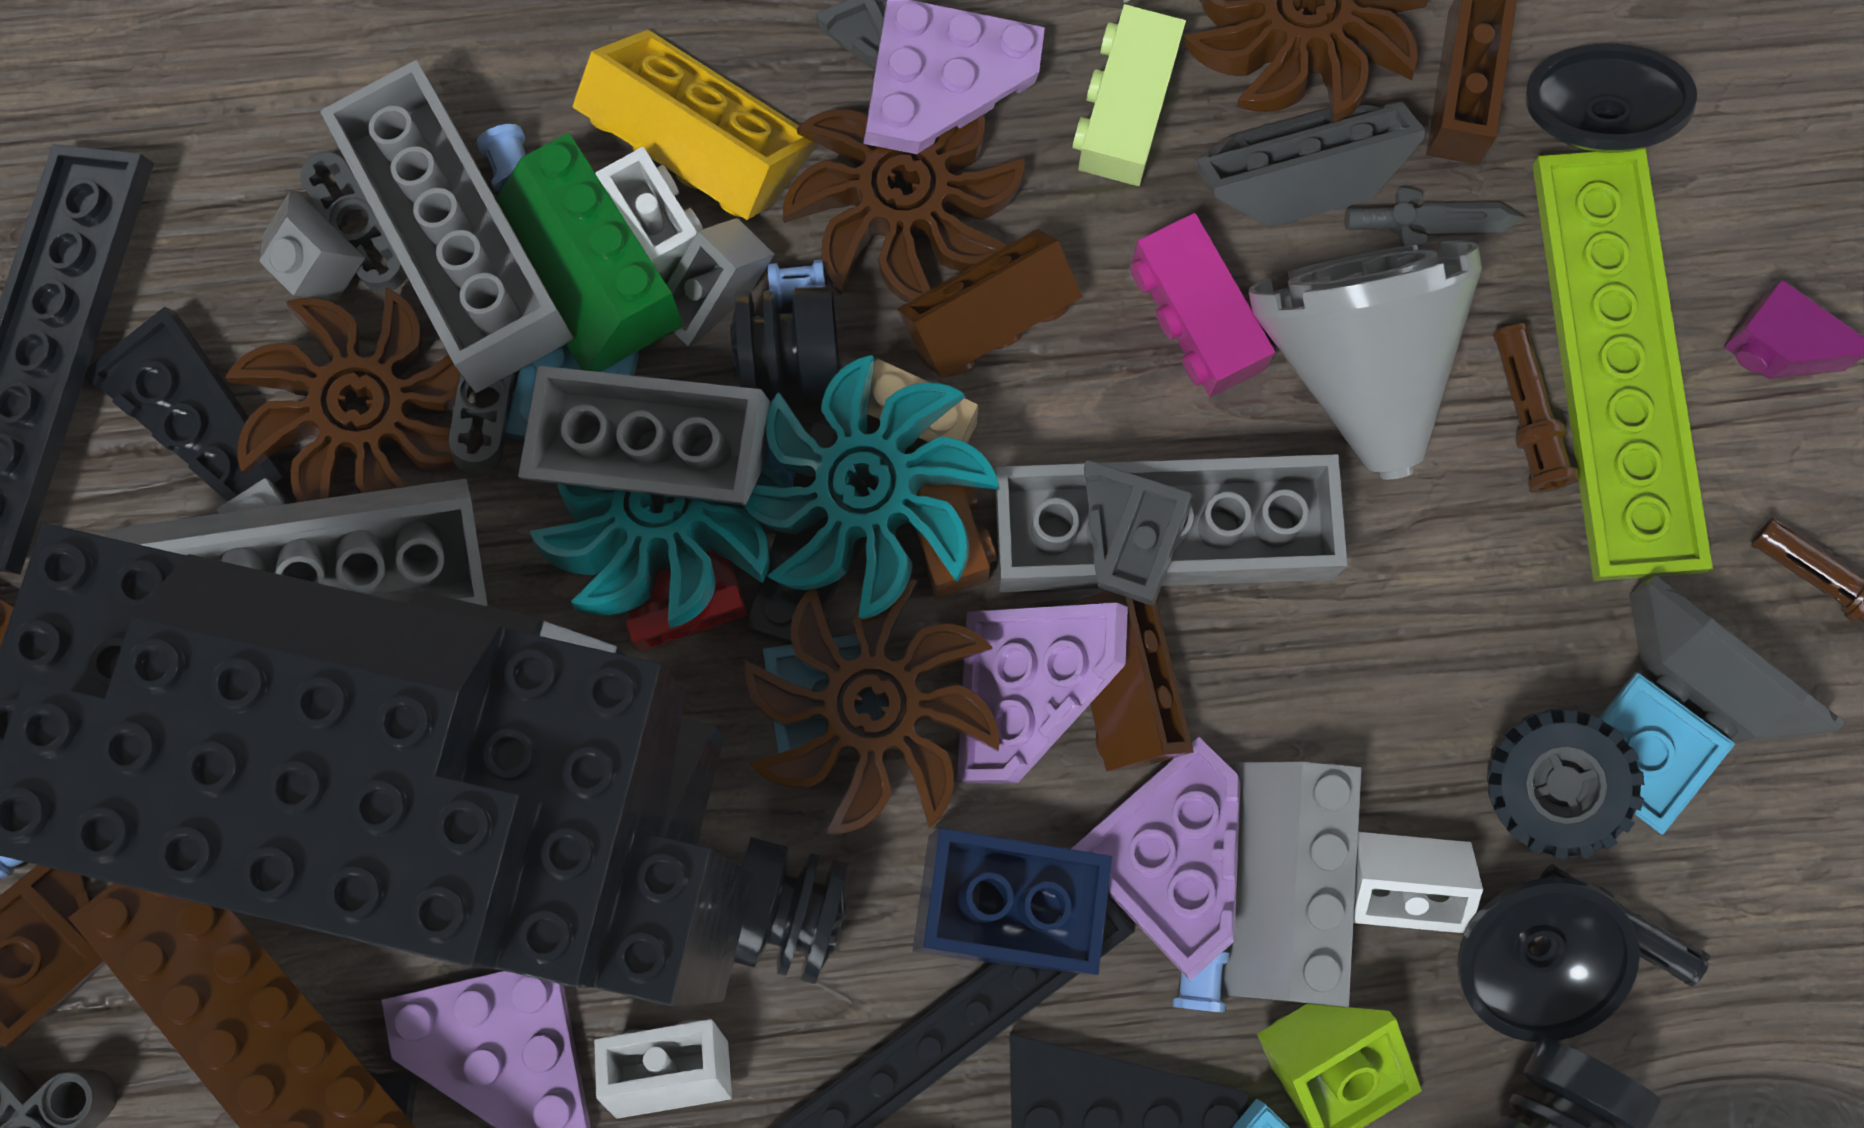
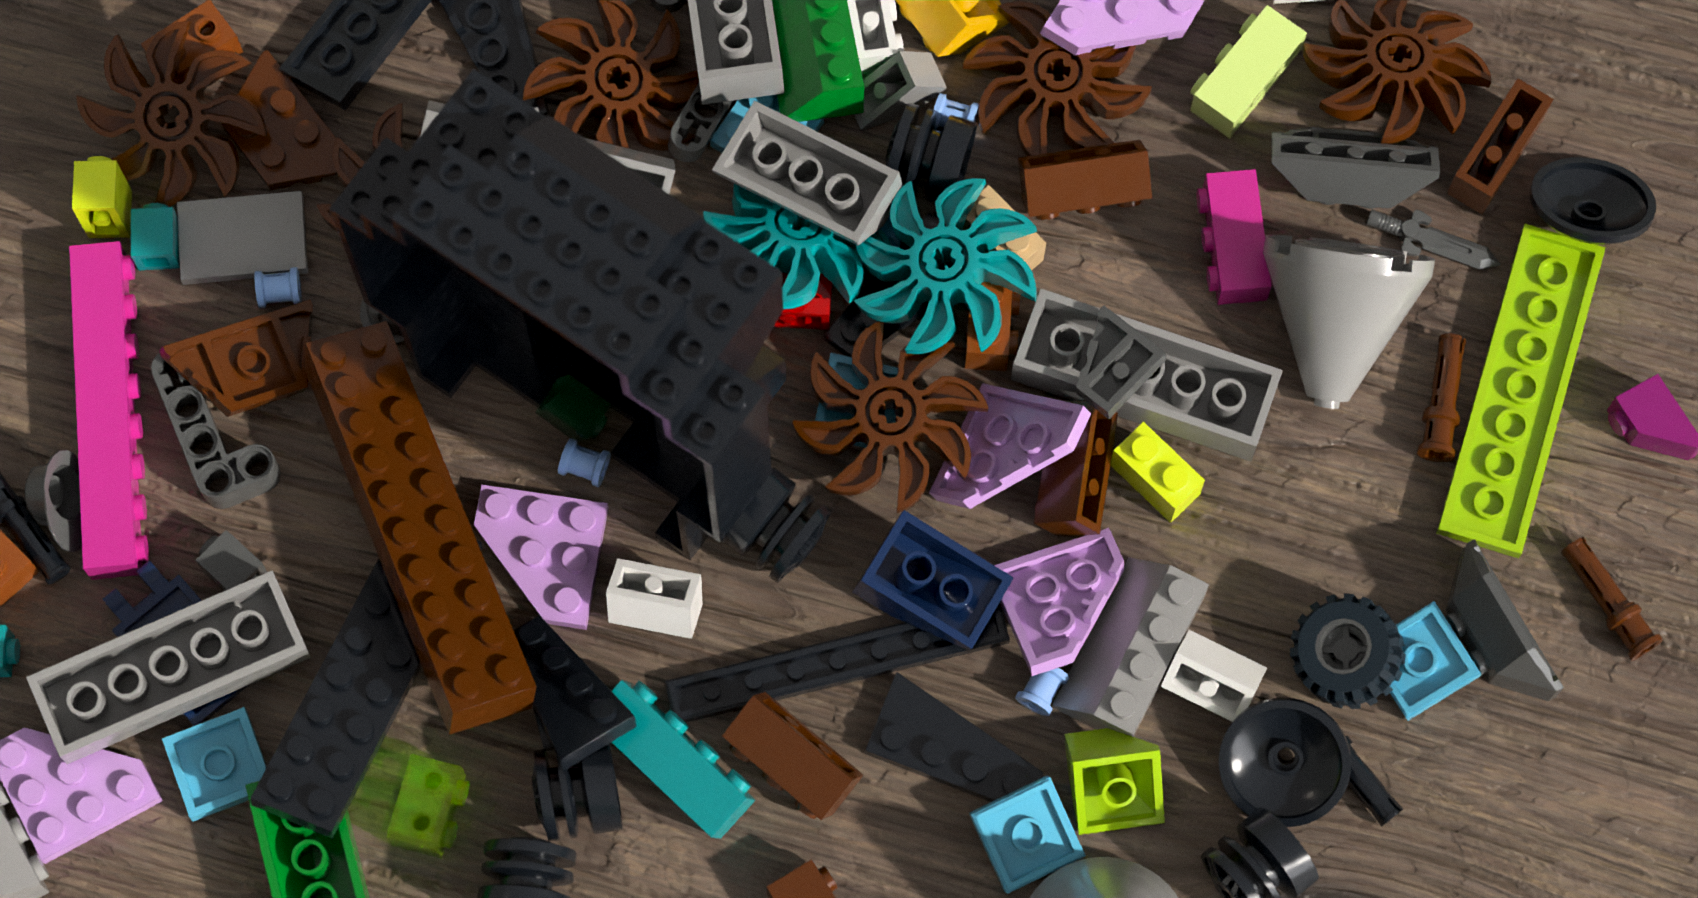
camera: 20 degrees right, 5 degrees down
(1231, 642) = (1157, 472): none -> neon yellow brick

